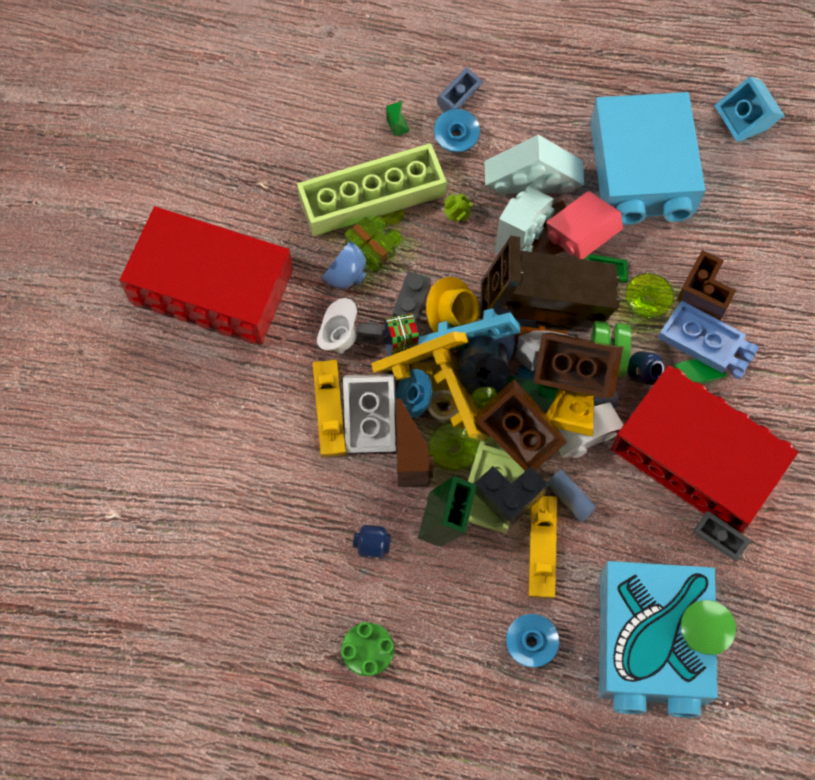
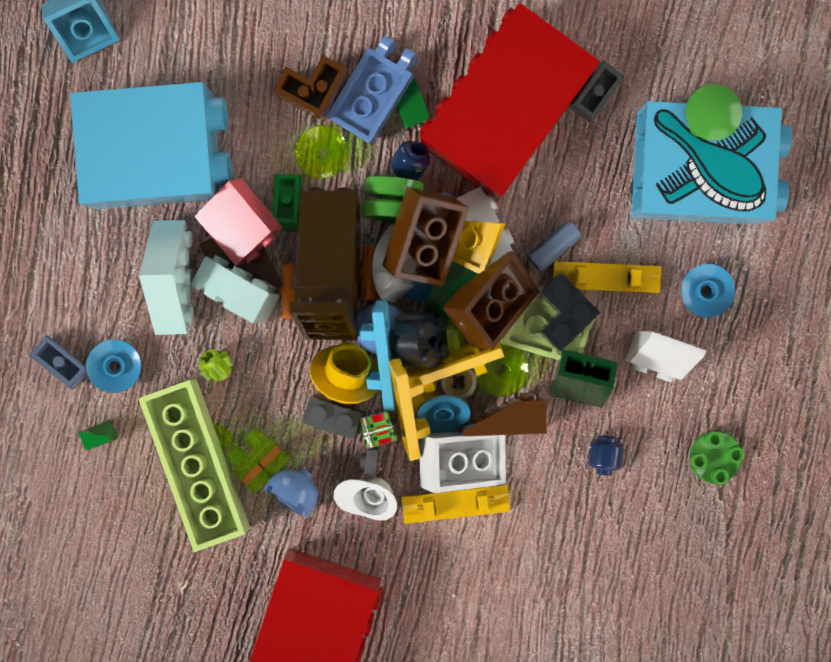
camera: 90 degrees left, 20 degrees up
(469, 588) = (662, 355): none -> white slope

